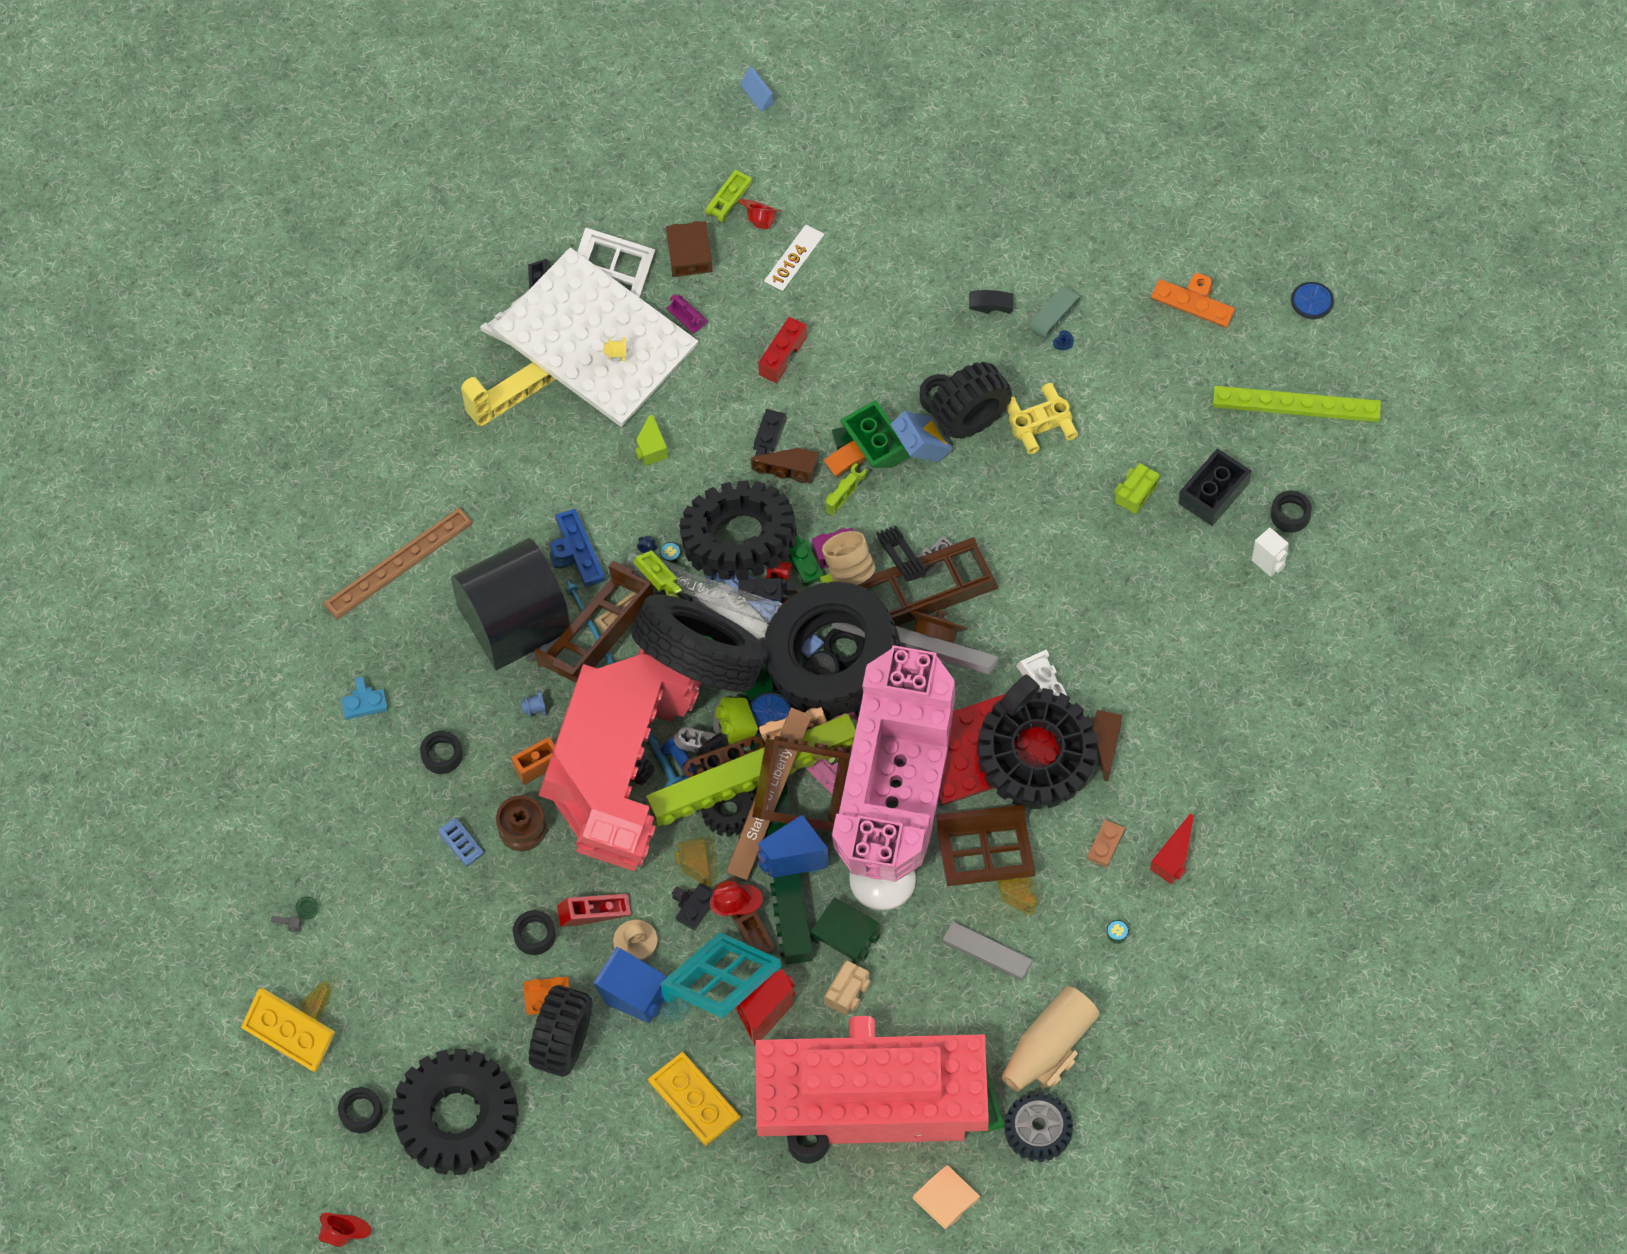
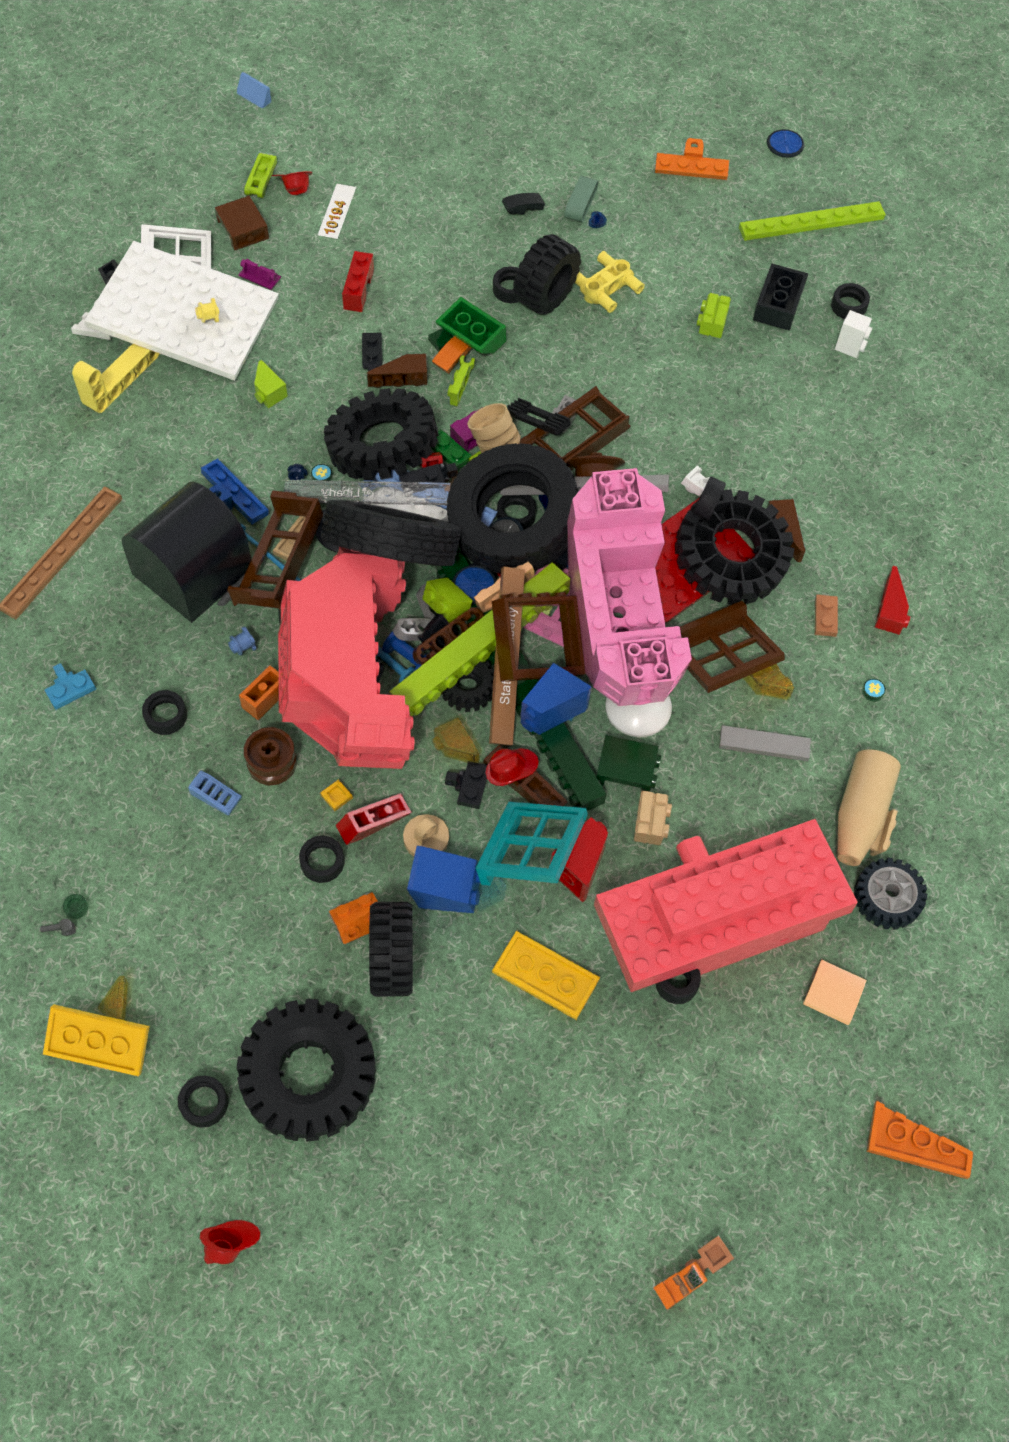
camera: 25 degrees left, 0 degrees up
(569, 877) = (336, 795): none -> yellow tile
(657, 573) = (319, 487): lime plate -> none
(921, 436) = (513, 317): medium blue brick -> none

